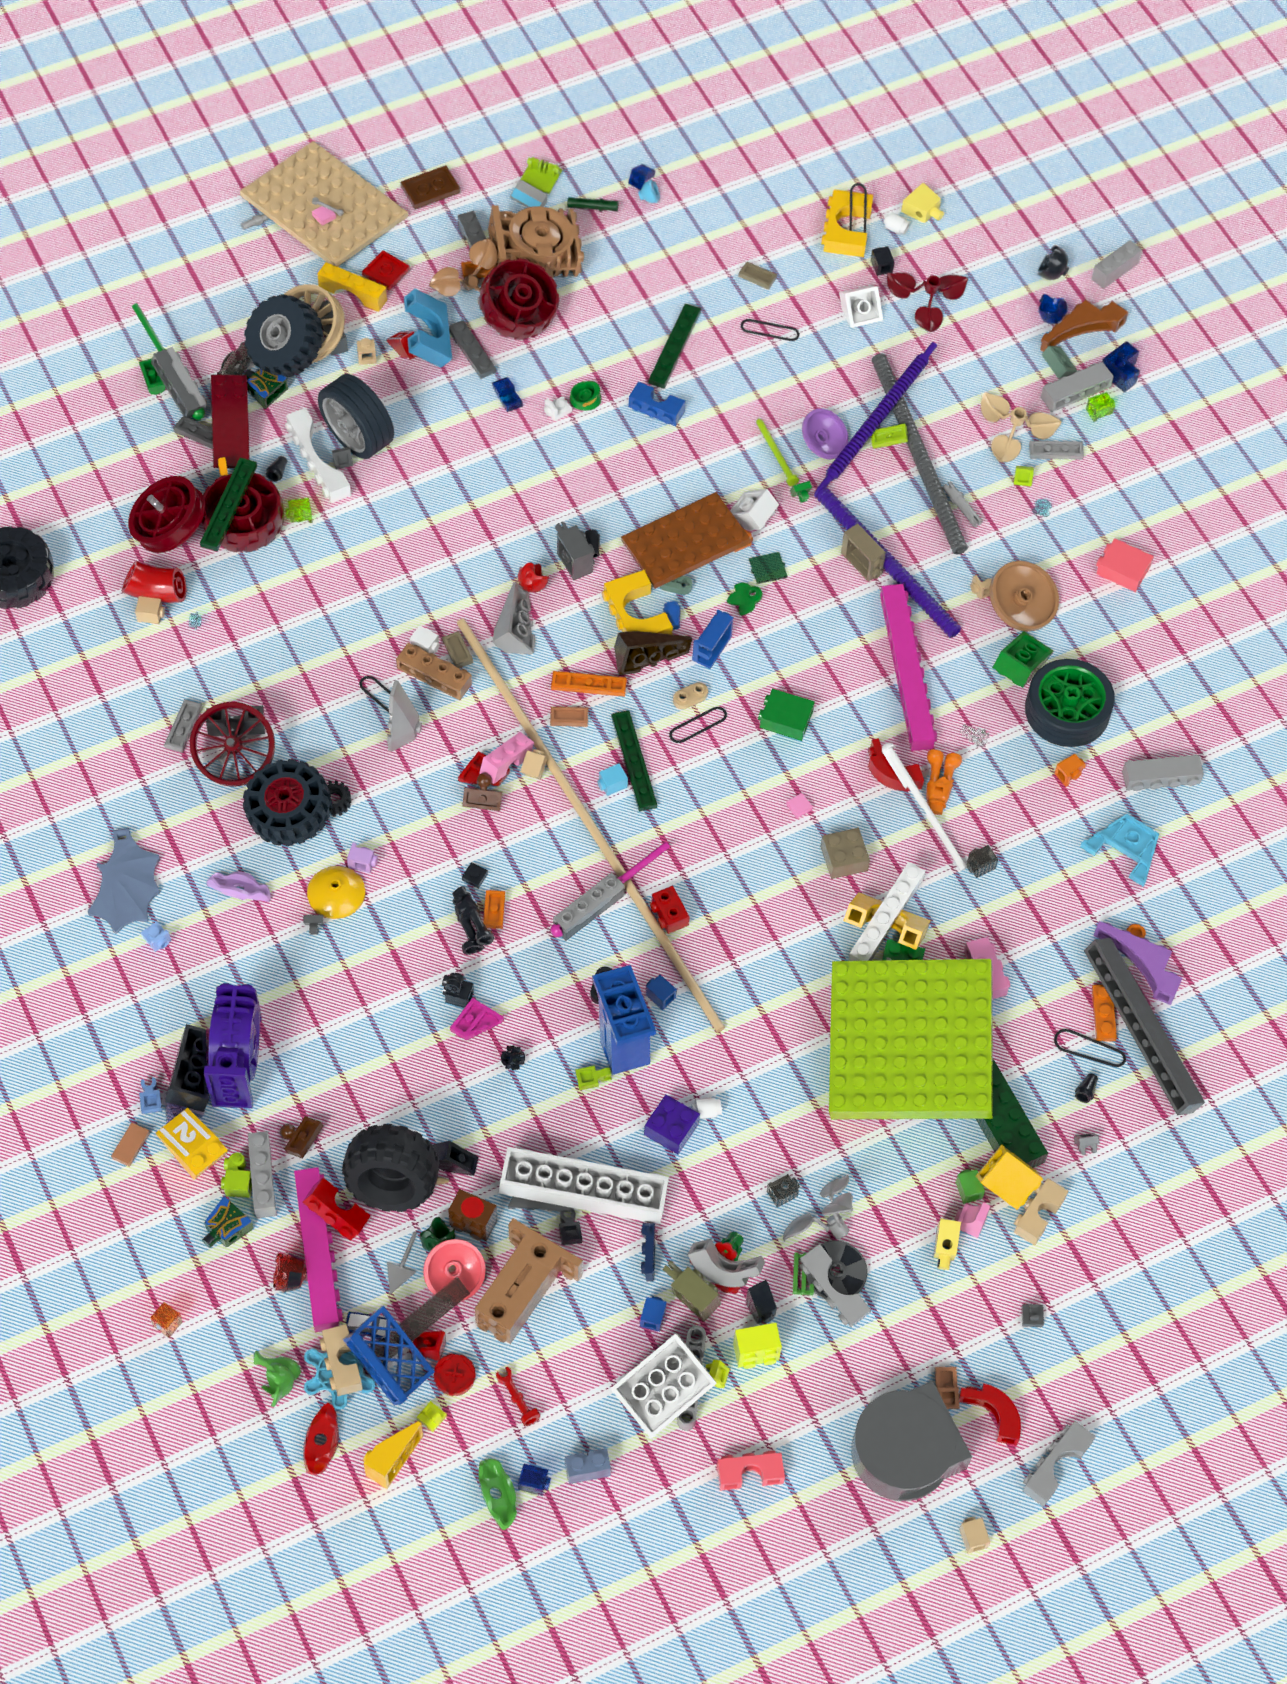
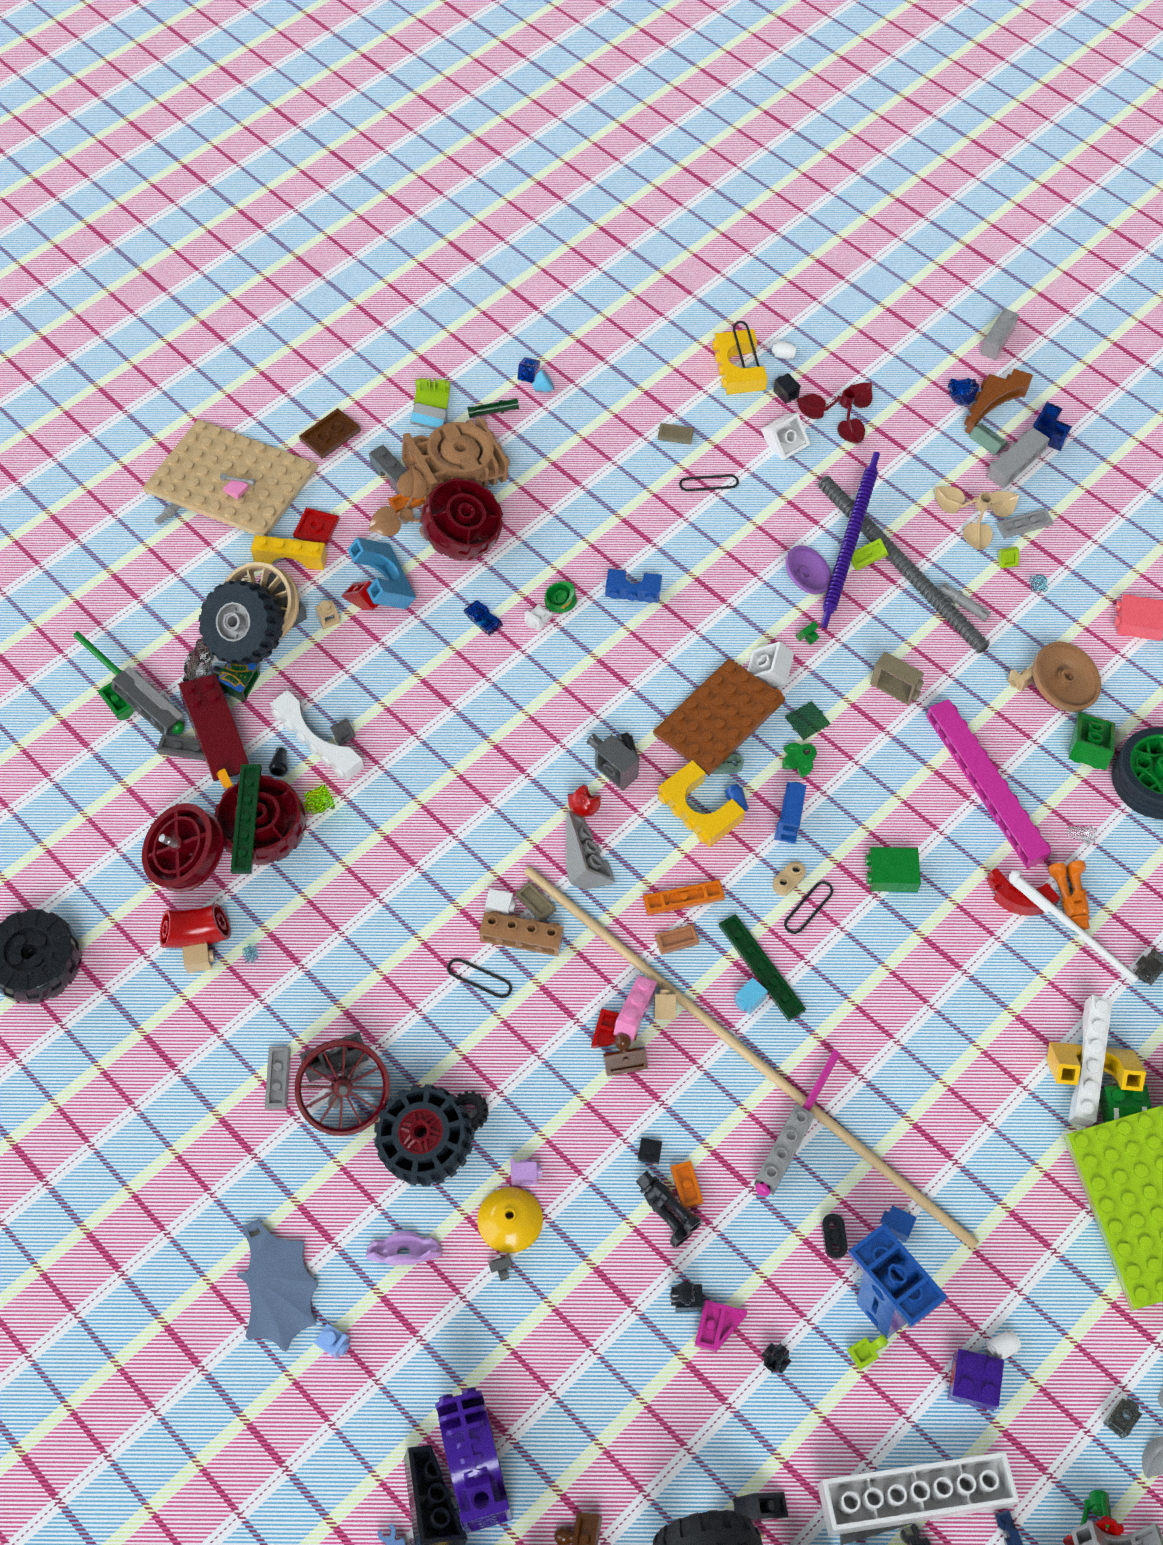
camera: 15 degrees left, 0 degrees up
(356, 416) = (345, 685): black wheel -> none
(403, 719) = (514, 1001): light grey wedge -> none
(472, 349) = (430, 582): dark grey plate -> none
(641, 649) = (724, 843): dark brown wedge -> none
(669, 909) = (869, 1125): red brick -> none
(674, 346) = (625, 524): dark green plate -> none
(791, 479) = (793, 623): lime bar -> none
(799, 805) = (946, 963): bright pink tile -> none
(845, 853) = (1016, 1002): dark tan brick -> none
(891, 565) = (930, 685): dark purple piece -> none
(922, 204) = (800, 326): light yellow torso -> none
(1054, 264) = (944, 349): black cylinder -> none
(1100, 406) = (1047, 470): clear neon green brick -> none

